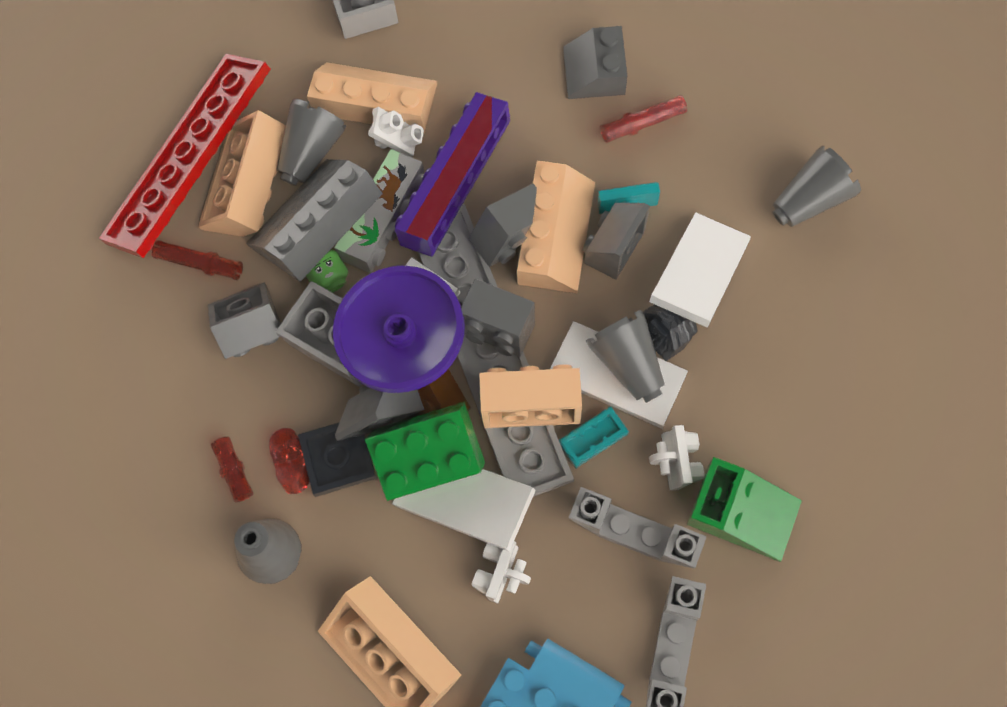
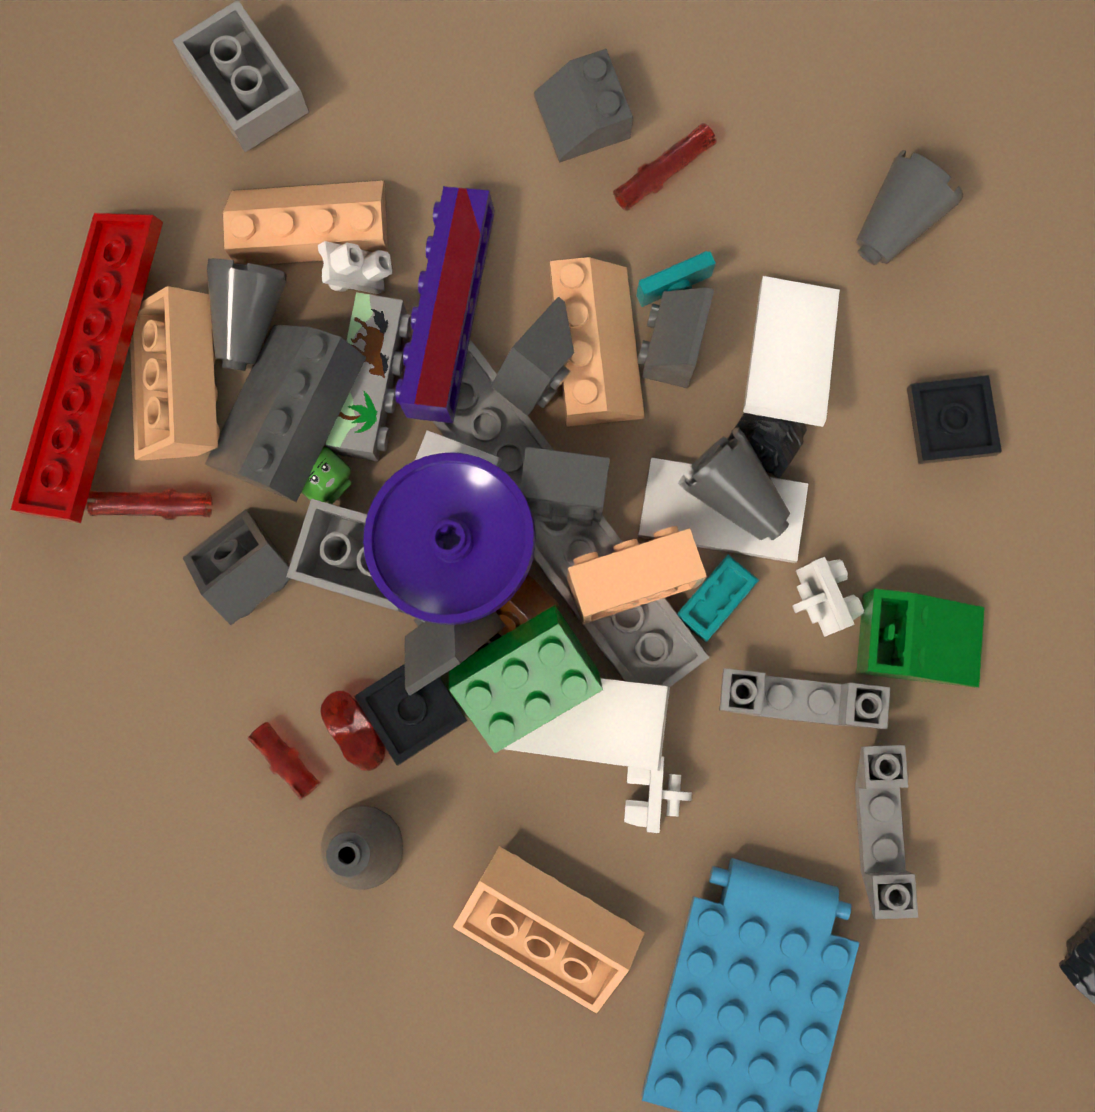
camera: 20 degrees left, 10 degrees up
(814, 353) = (953, 419): none -> black plate

